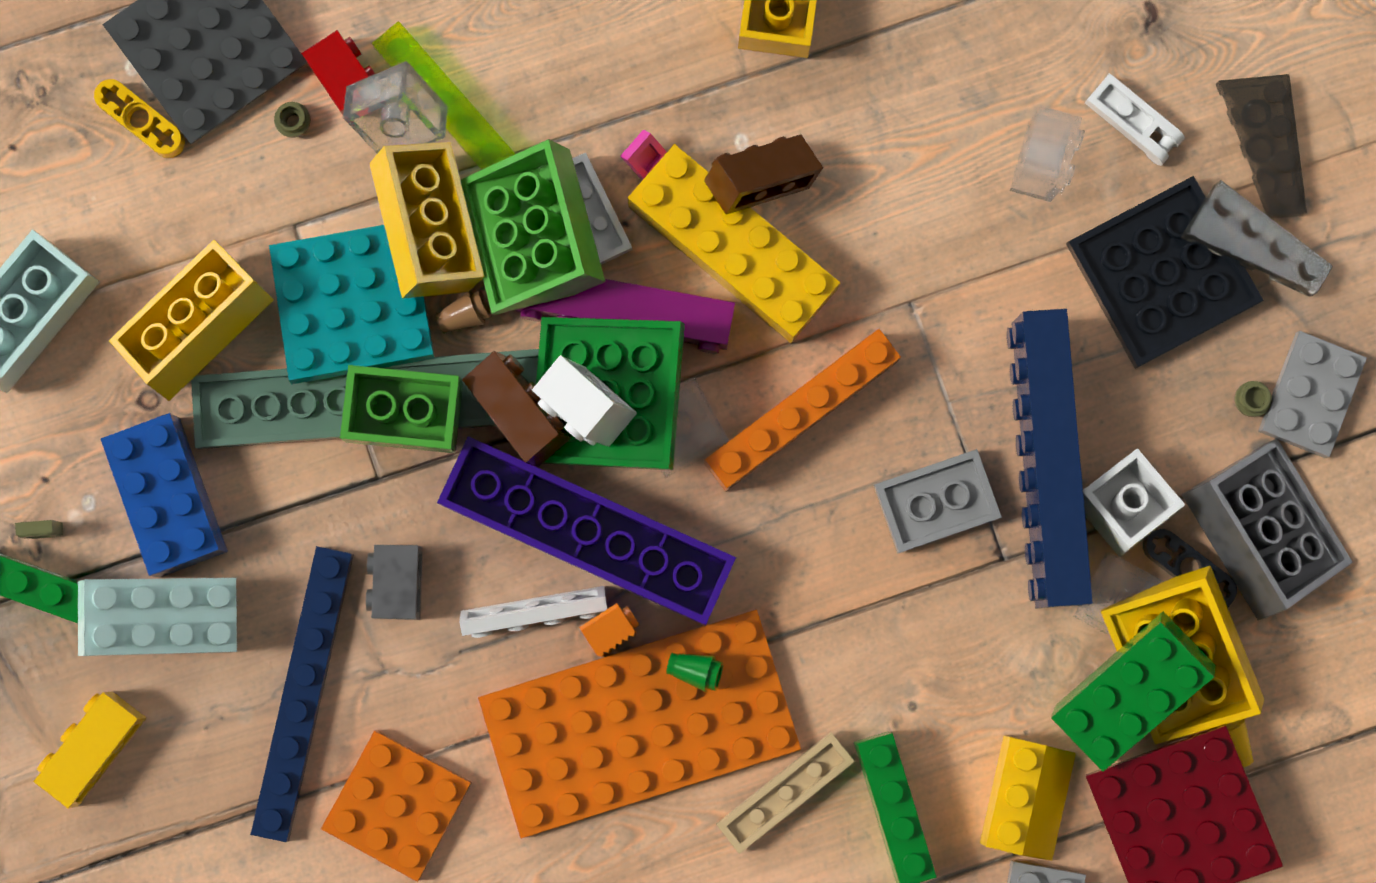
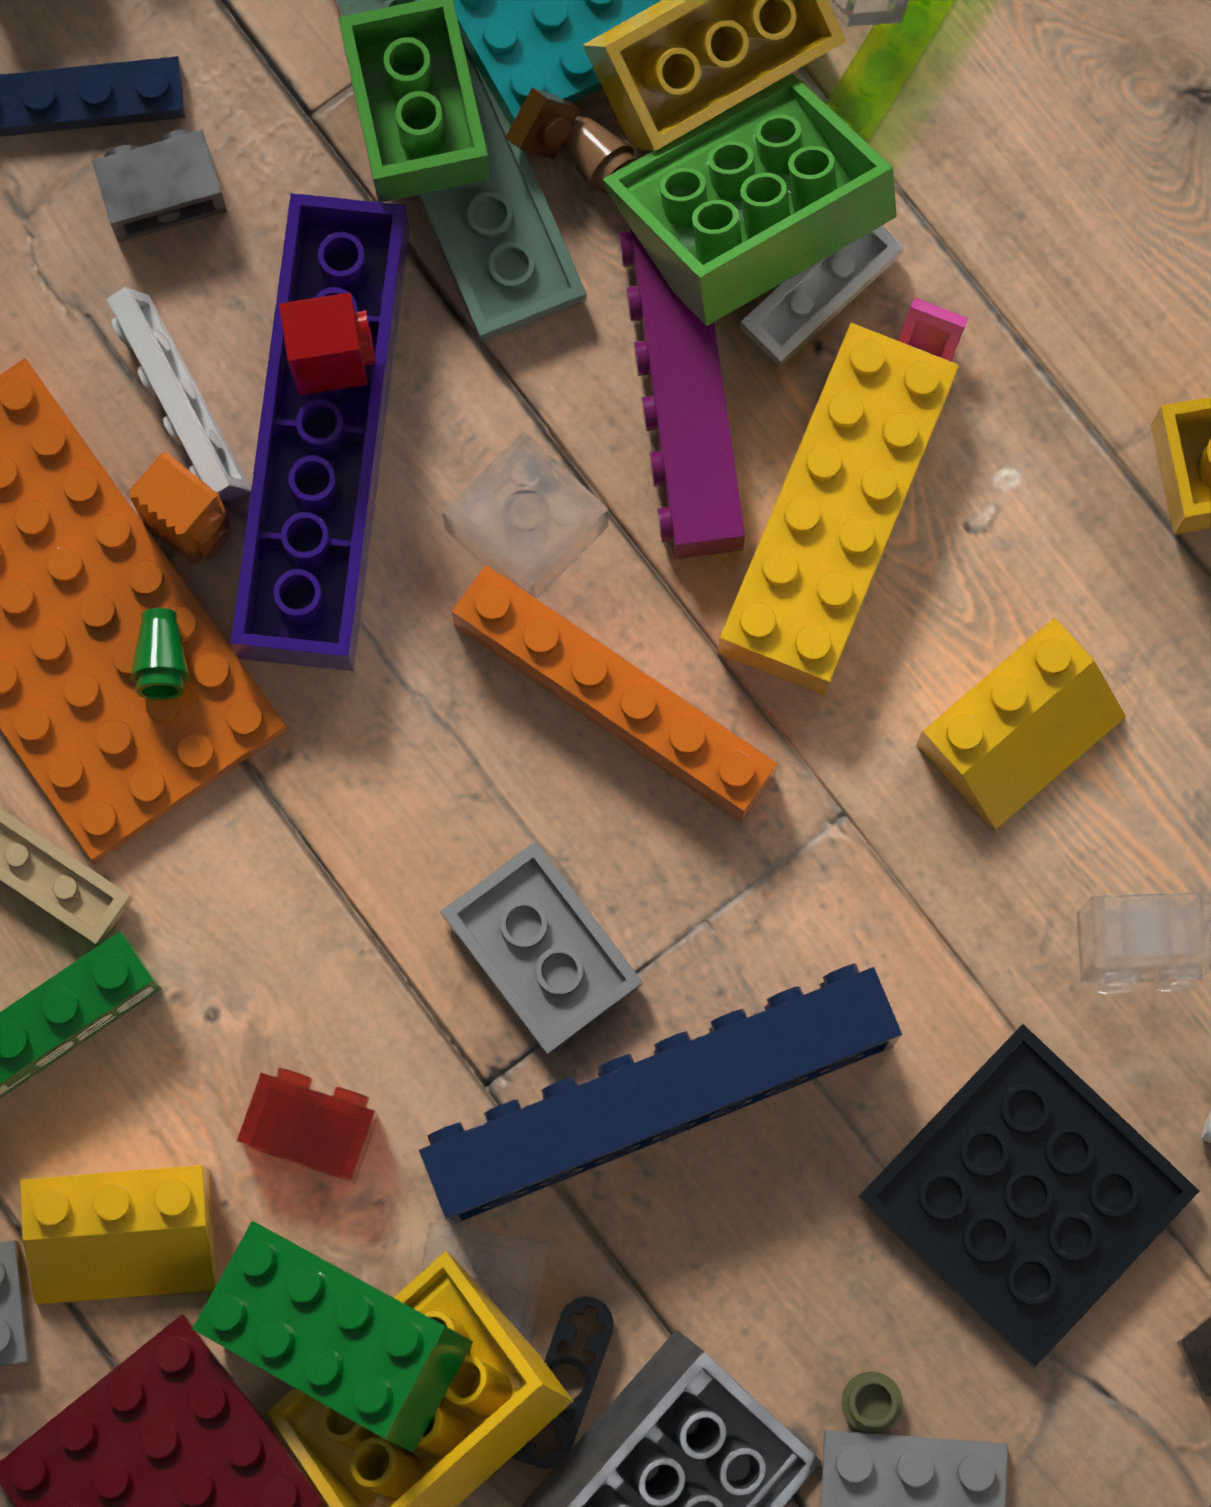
camera: 75 degrees right, 5 degrees down
(440, 338) = (542, 123): none -> reddish brown plate
(515, 408) = (469, 260): reddish brown brick -> none
(549, 507) = (326, 343): none -> red brick
(583, 402) = (503, 340): white brick -> none
(638, 364) = (538, 385): green plate -> none
(763, 173) = (959, 511): reddish brown brick -> none
(892, 182) = (1022, 724): none -> yellow slope
(1000, 668) = (309, 1126): none -> clear red brick
(1129, 502) = (634, 1244): white brick -> none
(1245, 233) = (1132, 1306): clear smoke wing -> none

